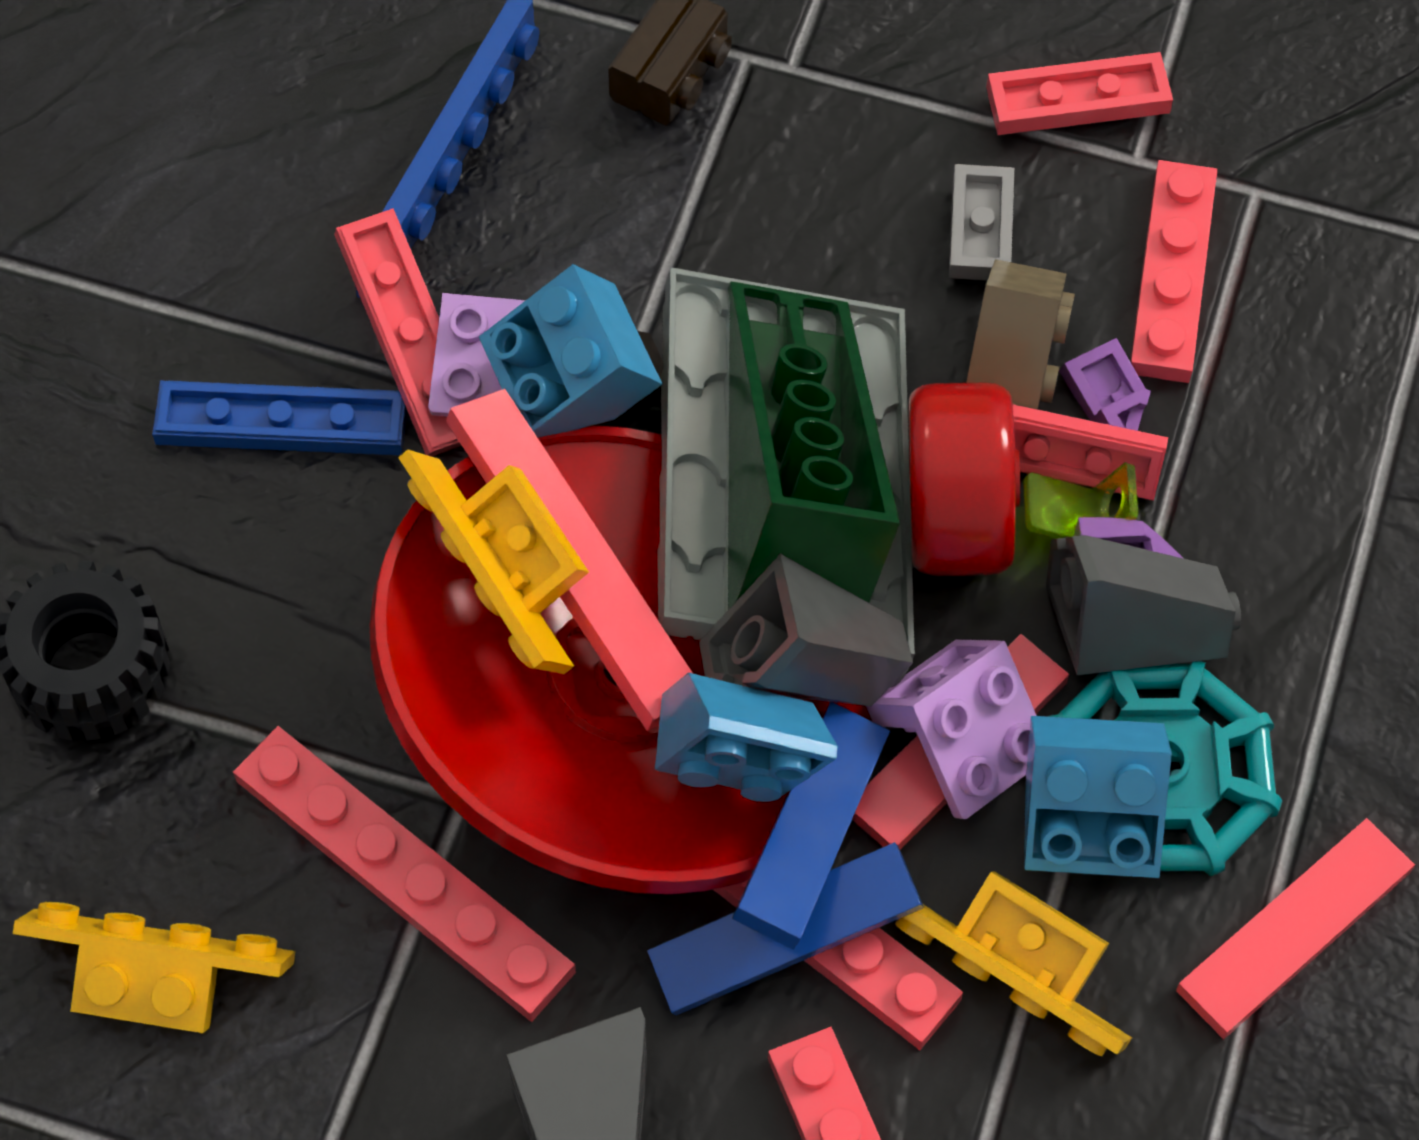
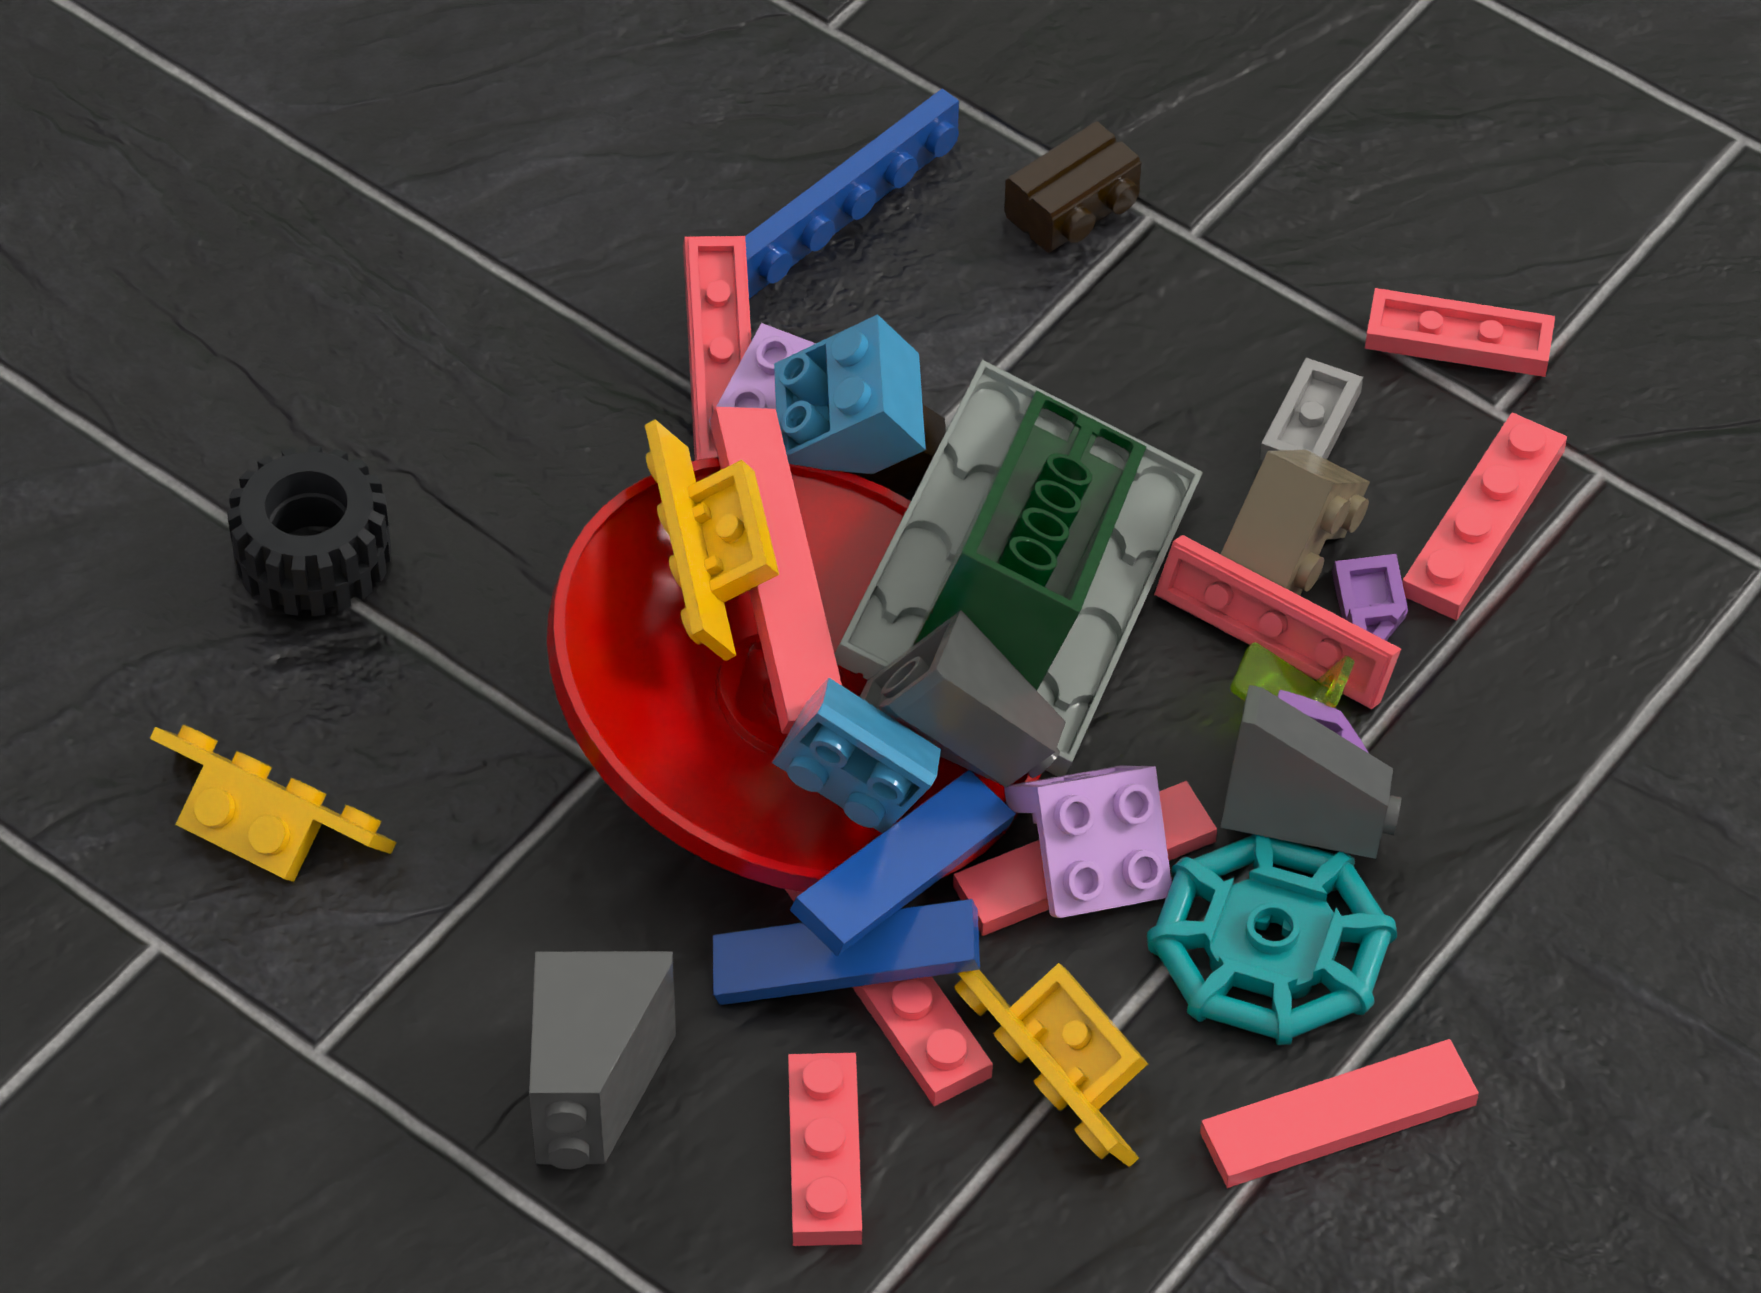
camera: 20 degrees right, 10 degrees down
(280, 418) = (567, 393): blue tile -> none
(405, 873) = (522, 806): coral plate -> none
(962, 479) = (1175, 617): red wheel -> none
(1096, 796) = (1184, 927): dark azure slope -> none

